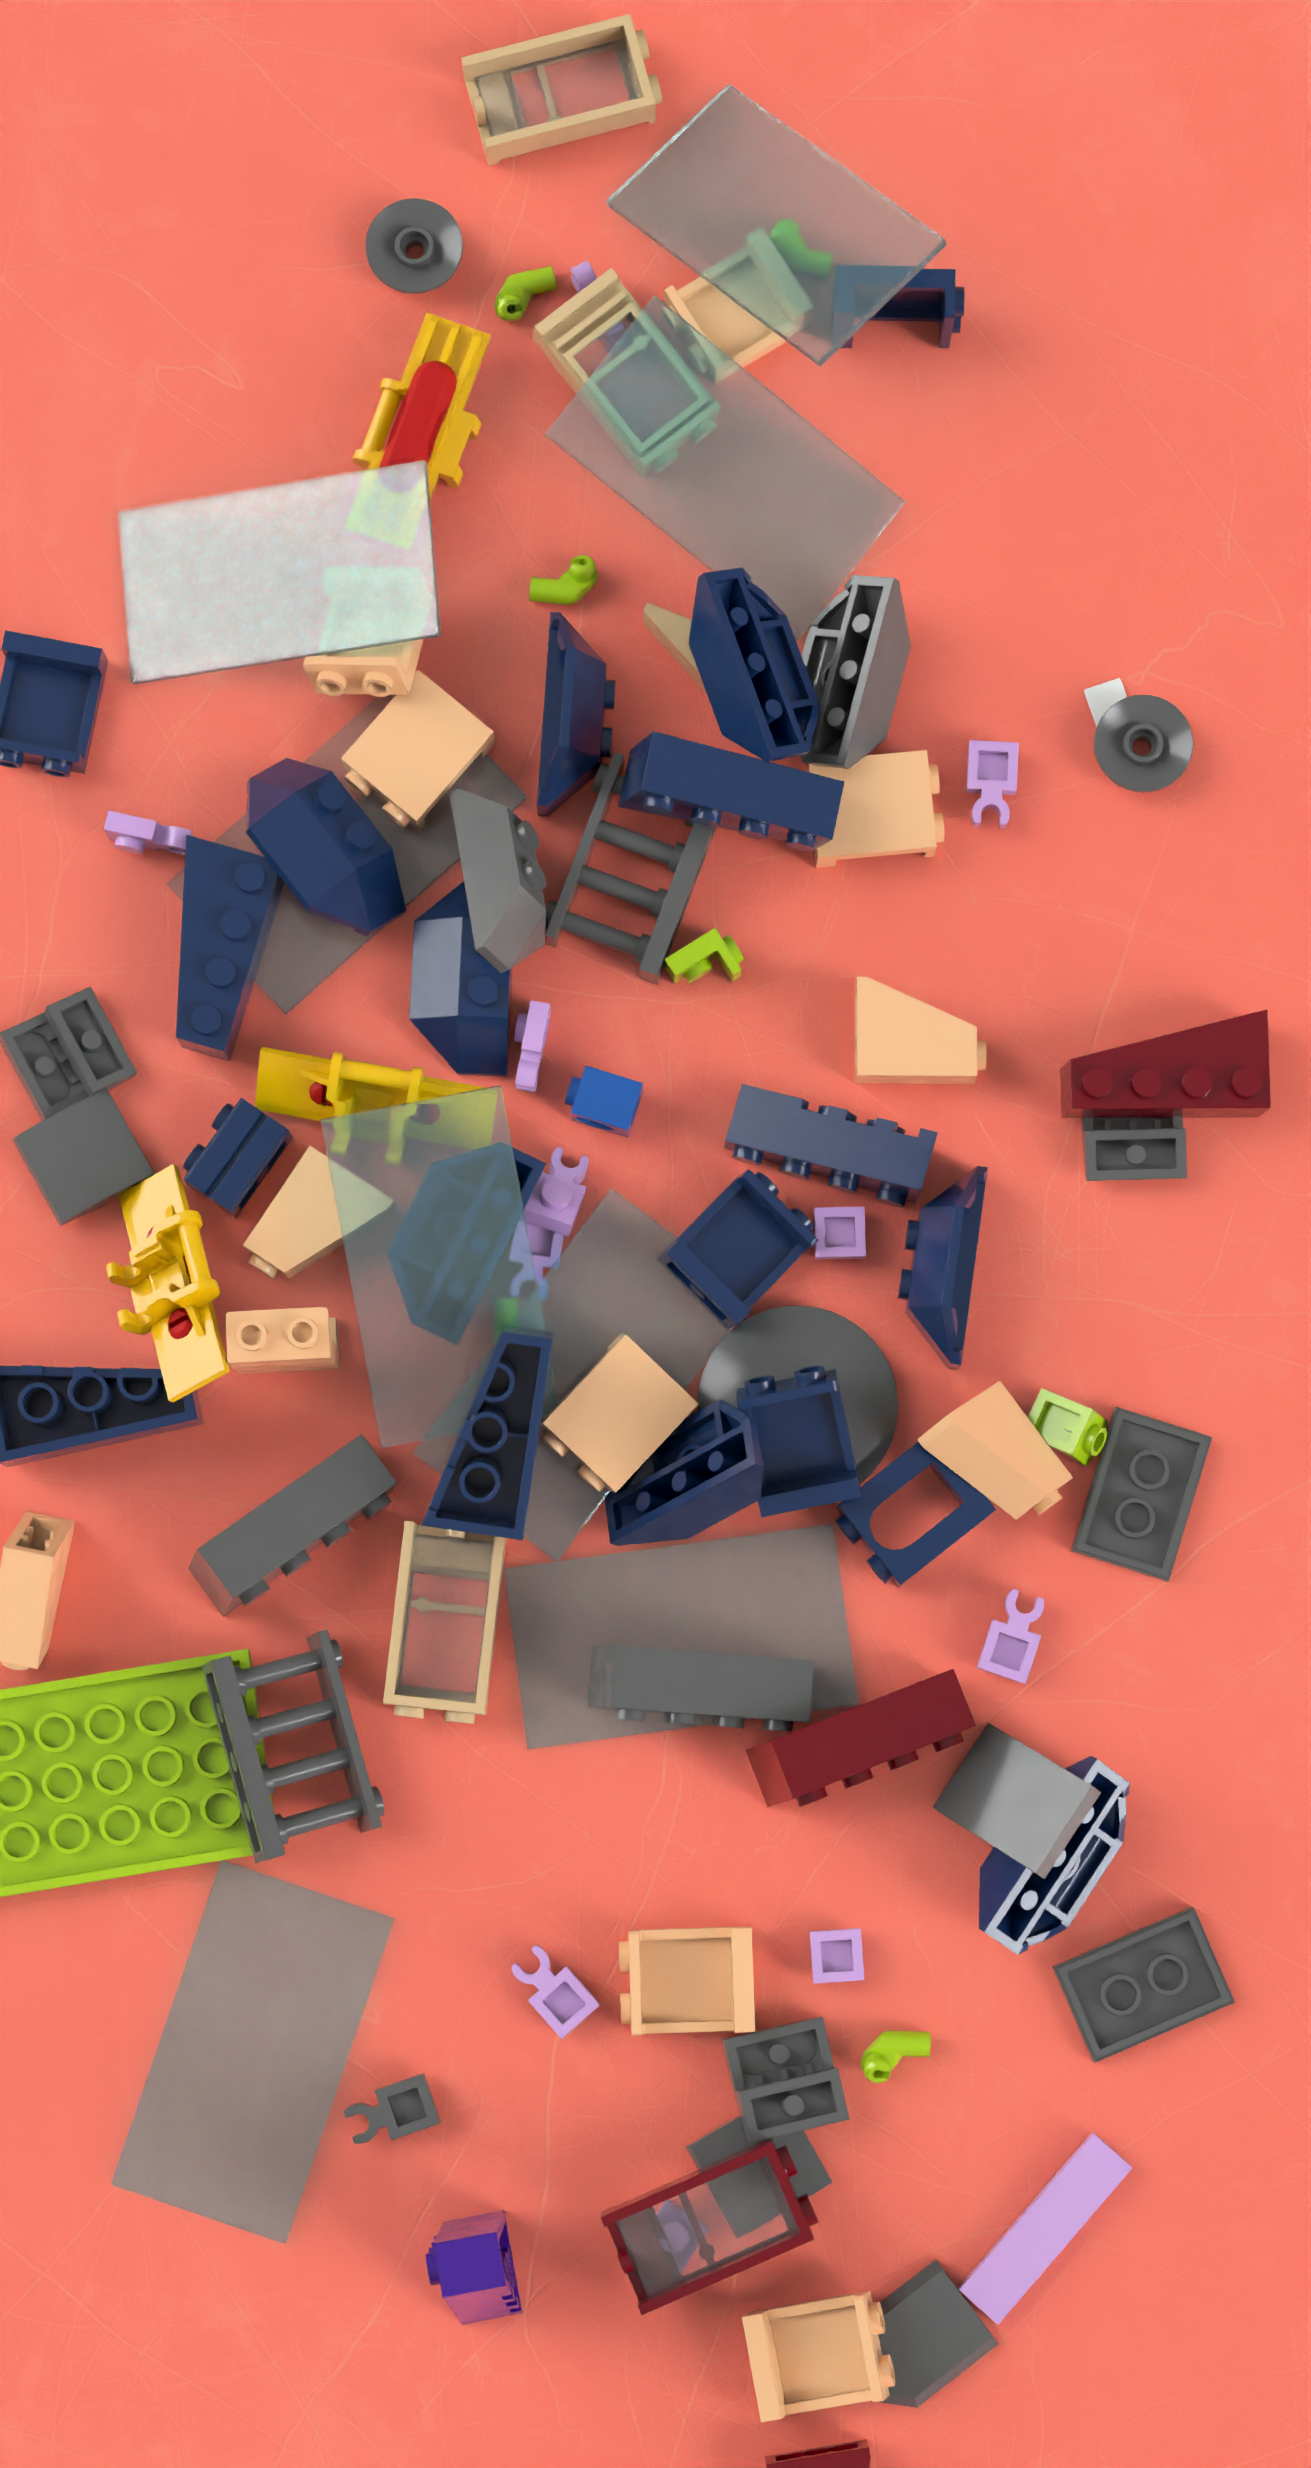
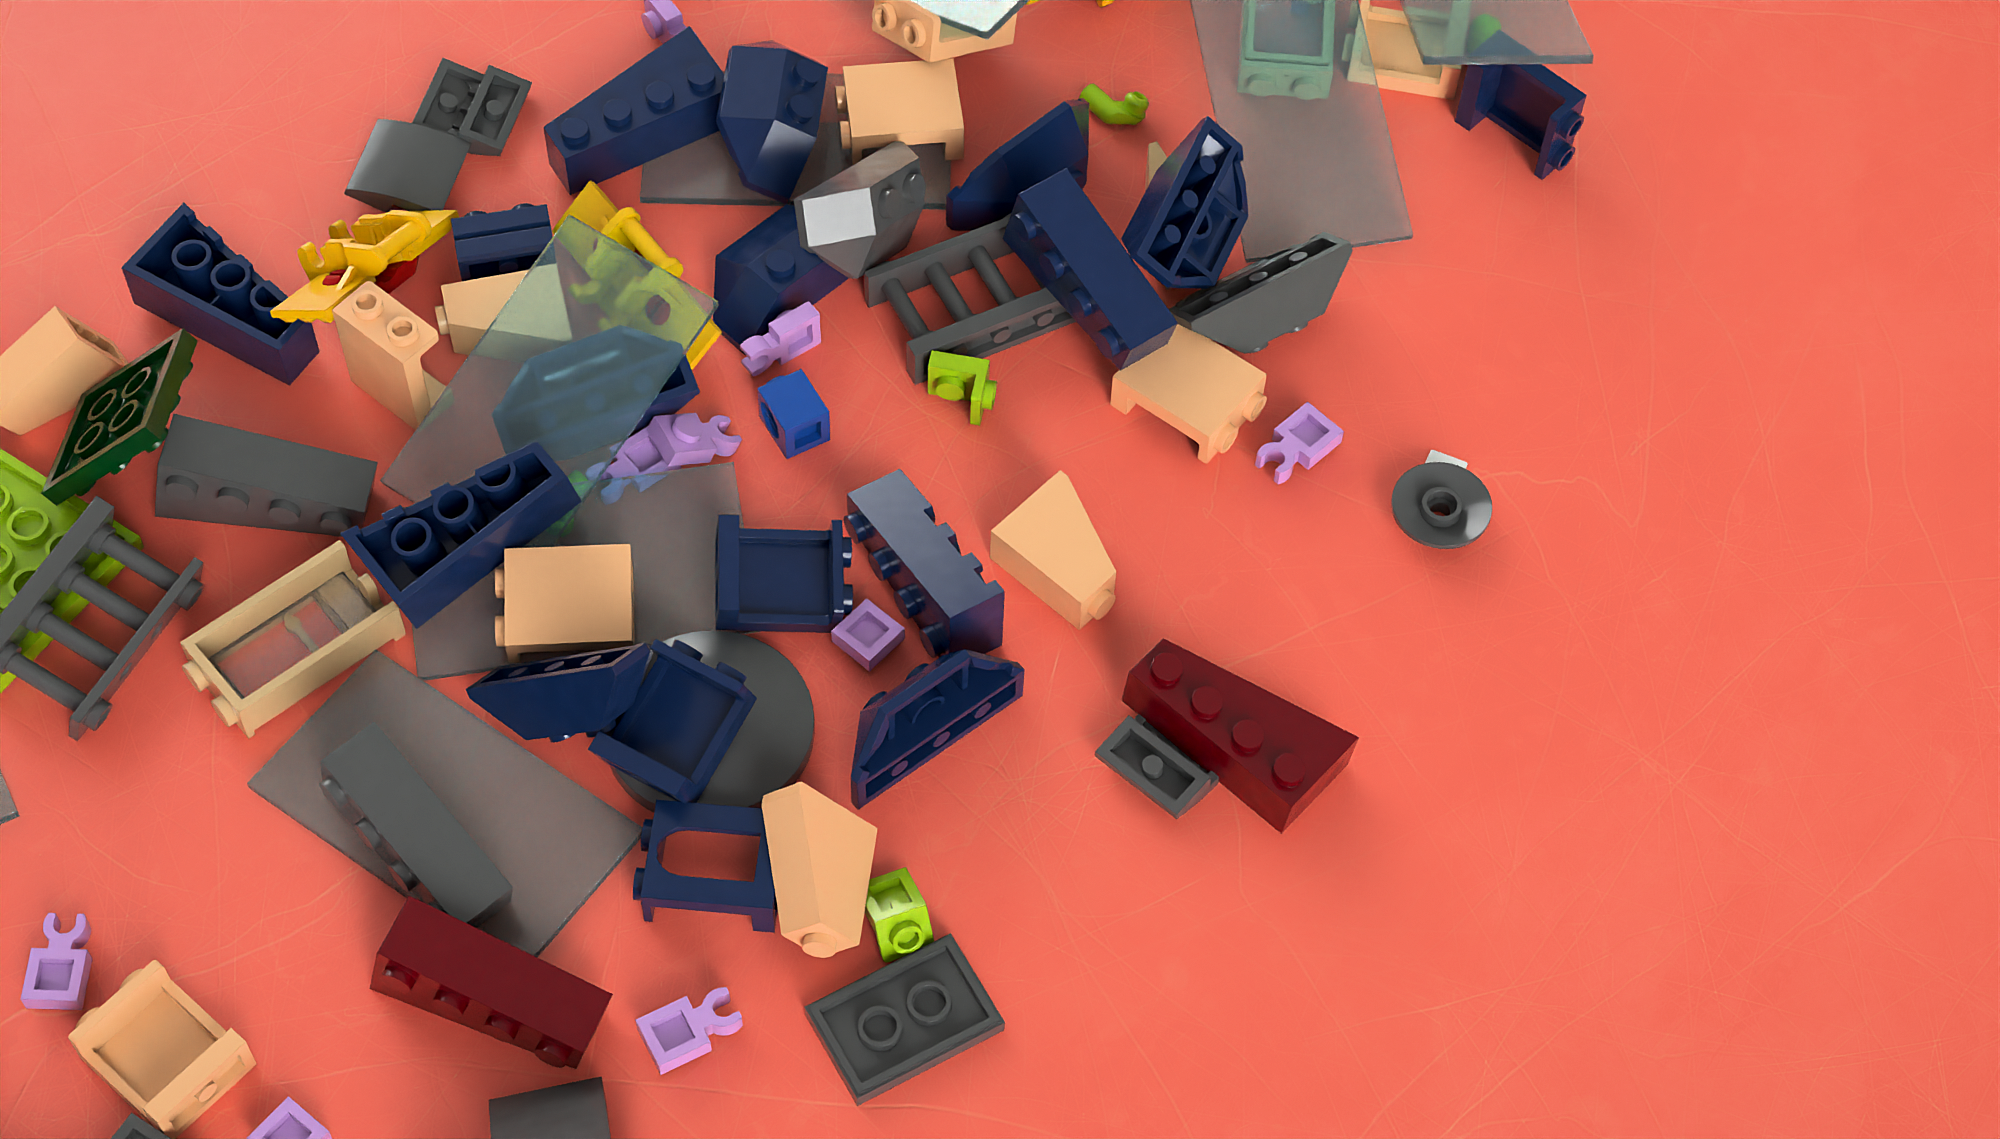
camera: 40 degrees right, 25 degrees down
(146, 1581) = (121, 418): none -> dark green plate

